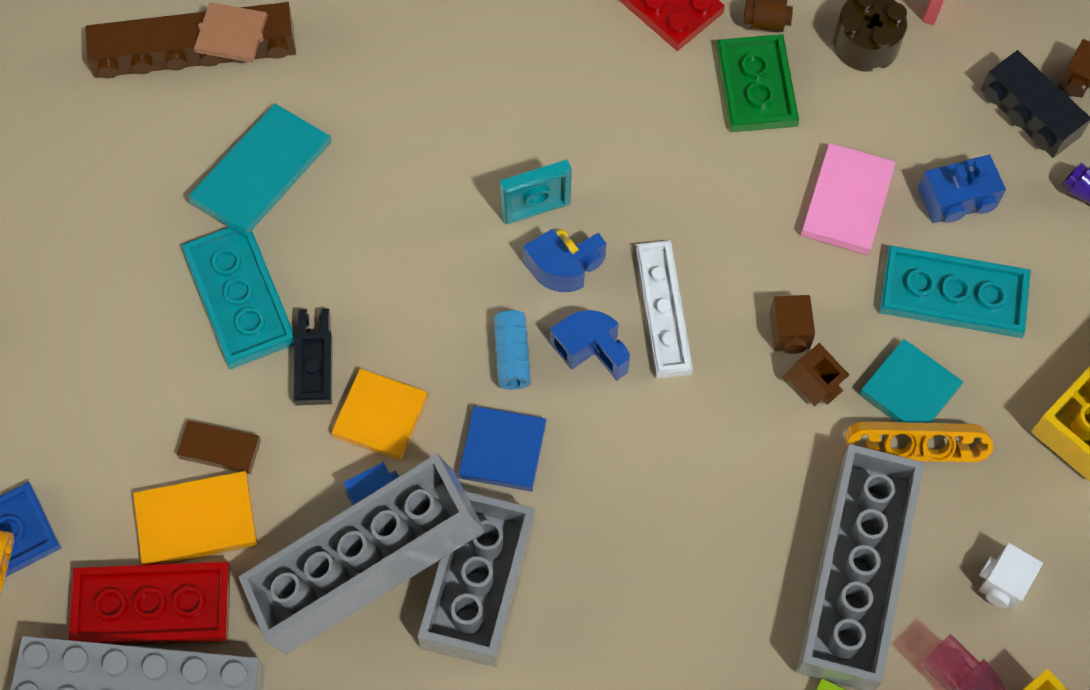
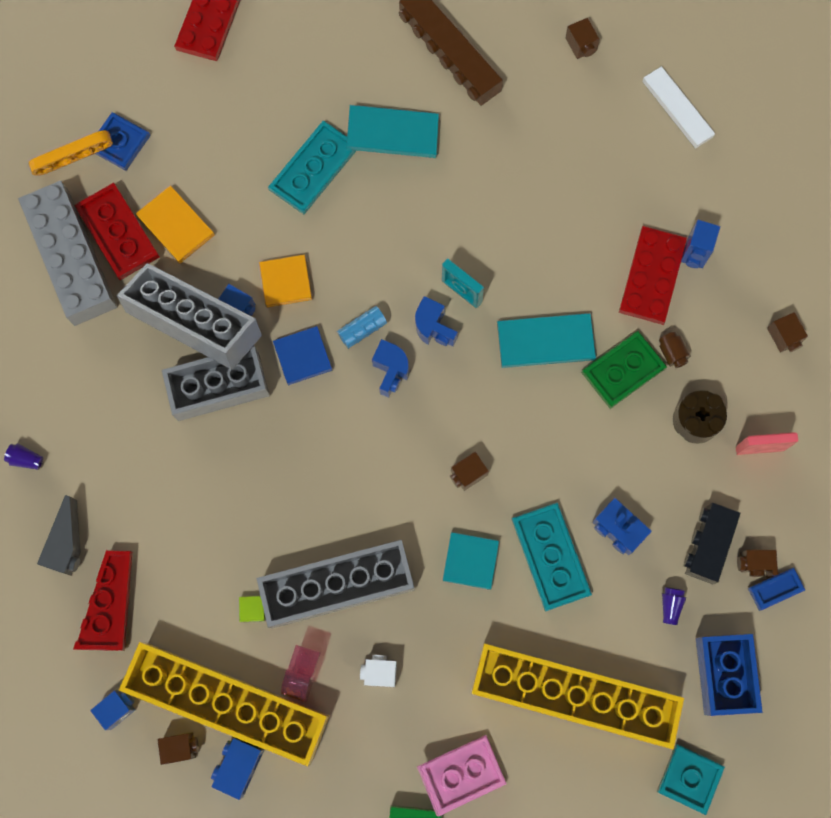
camera: 65 degrees right, 10 degrees up
(219, 447) = (220, 211): reddish brown tile -> none
(230, 32) = (462, 62): nougat piece -> none
(313, 361) = (296, 227): black hinge -> none
(568, 242) = (434, 320): yellow hinge -> none
(663, 309) = (439, 395): white tile -> none
(665, 147) = (546, 340): none -> teal tile
(817, 375) = (450, 498): reddish brown brick -> none
(848, 199) = (576, 463): bright pink tile -> none
(920, 435) = (433, 582): light orange beam -> none

